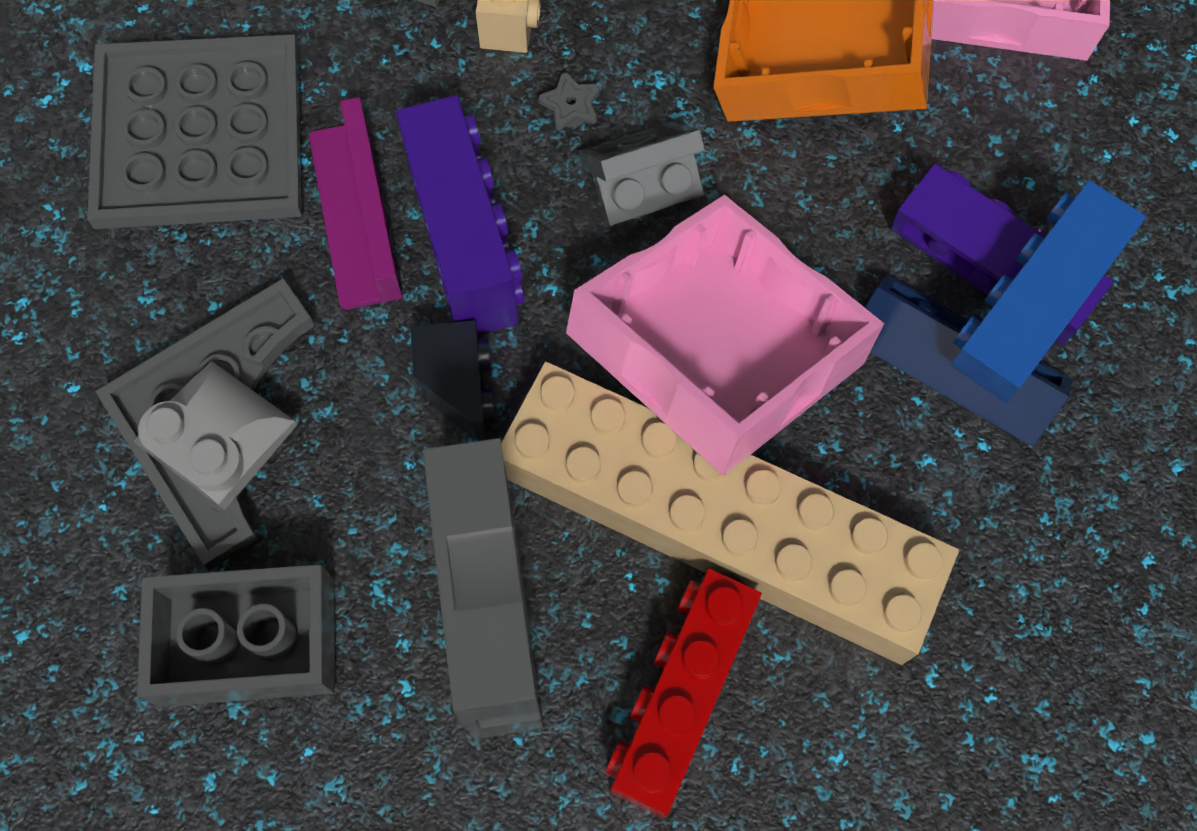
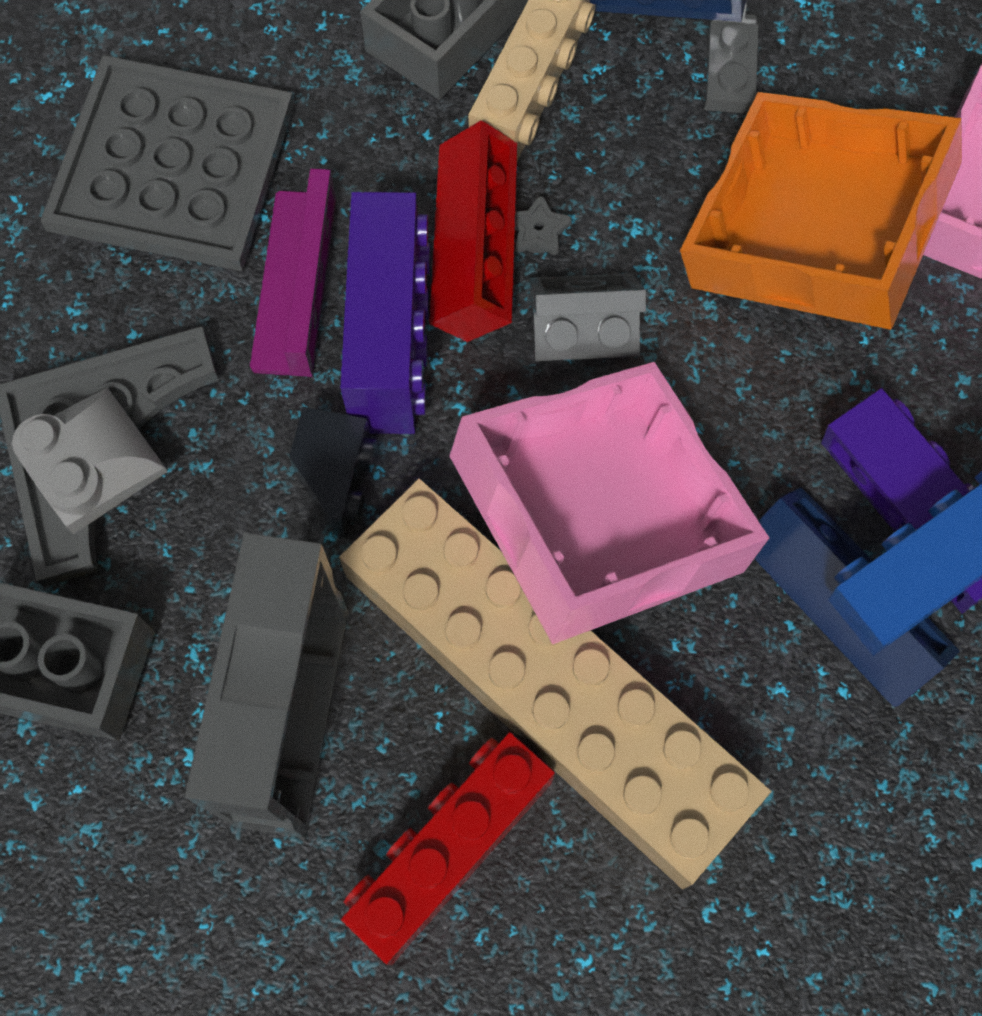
camera: 20 degrees right, 0 degrees up
(516, 121) = (474, 233): none -> red brick

